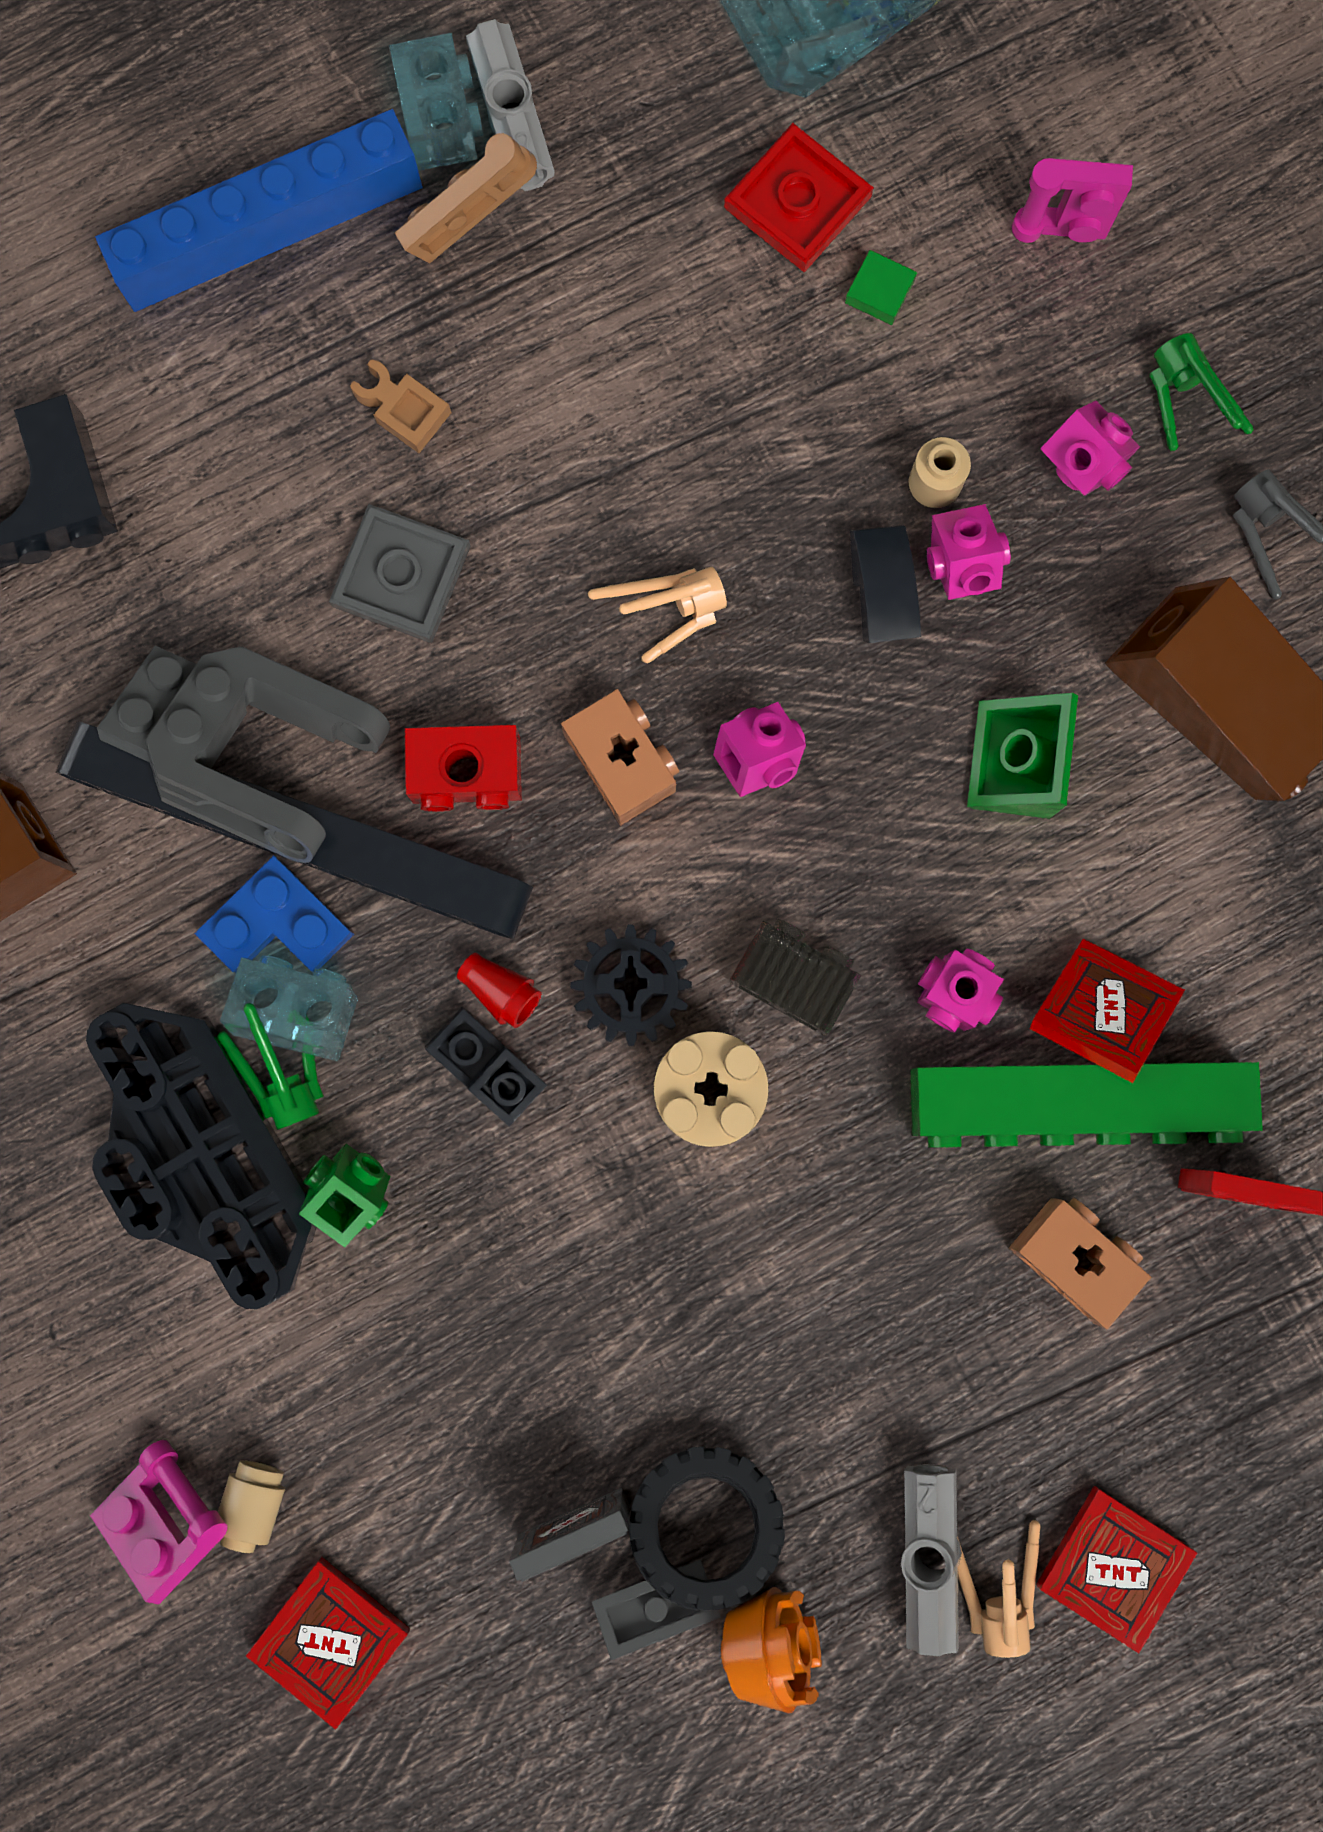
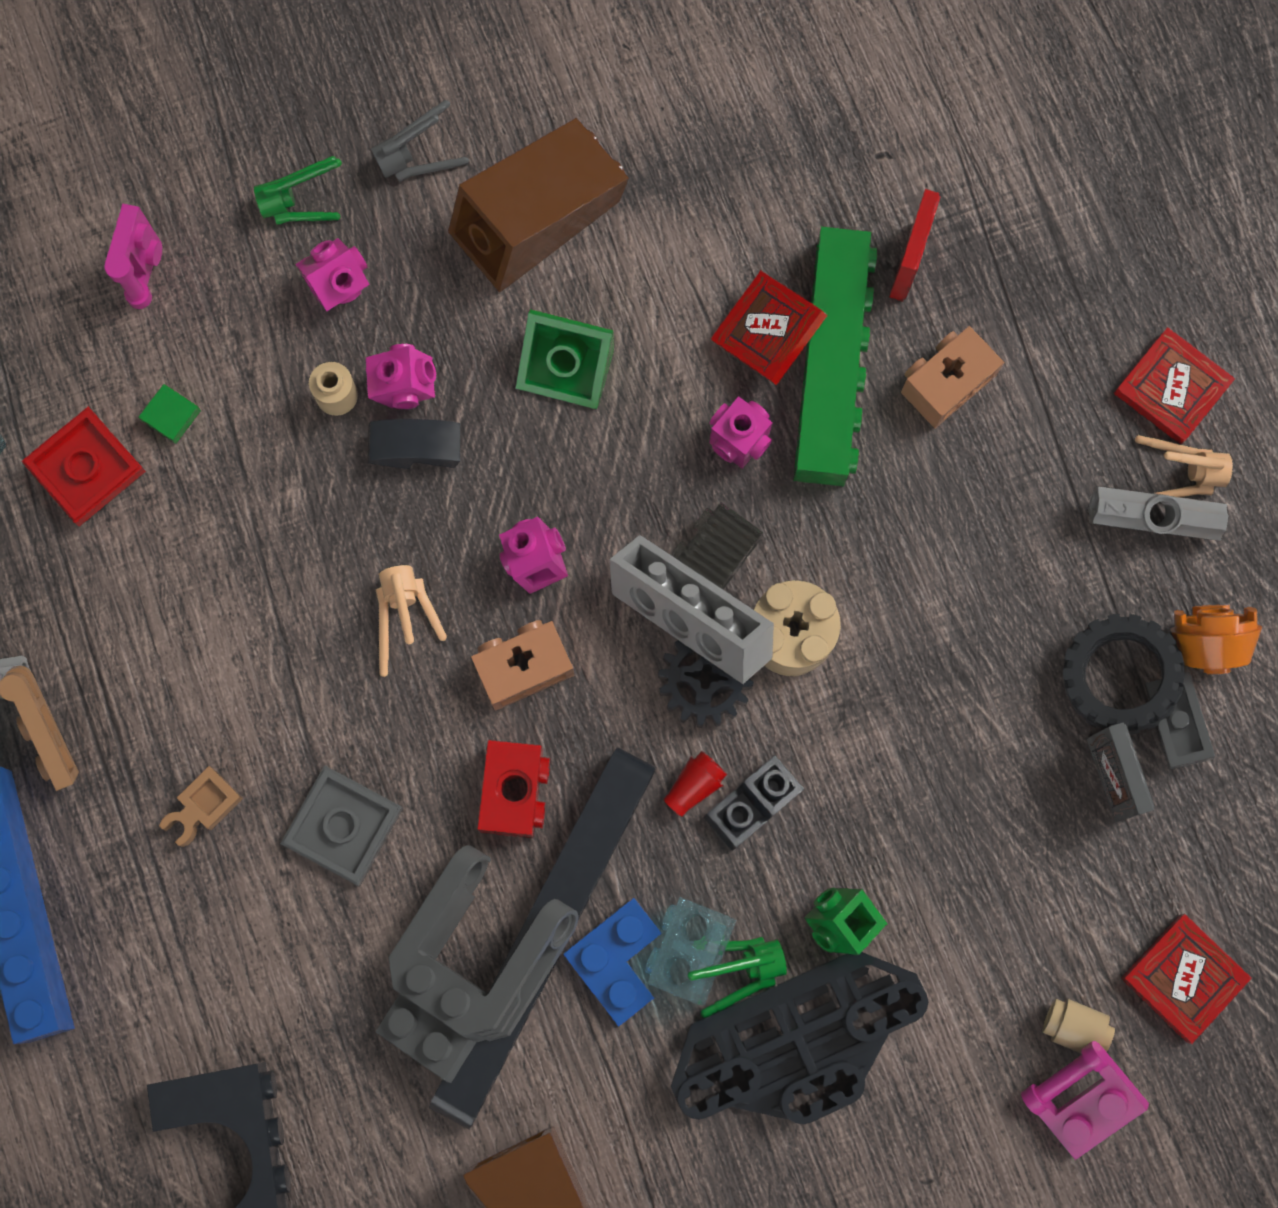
camera: 85 degrees left, 5 degrees down
(710, 953) = (692, 609): none -> light grey brick

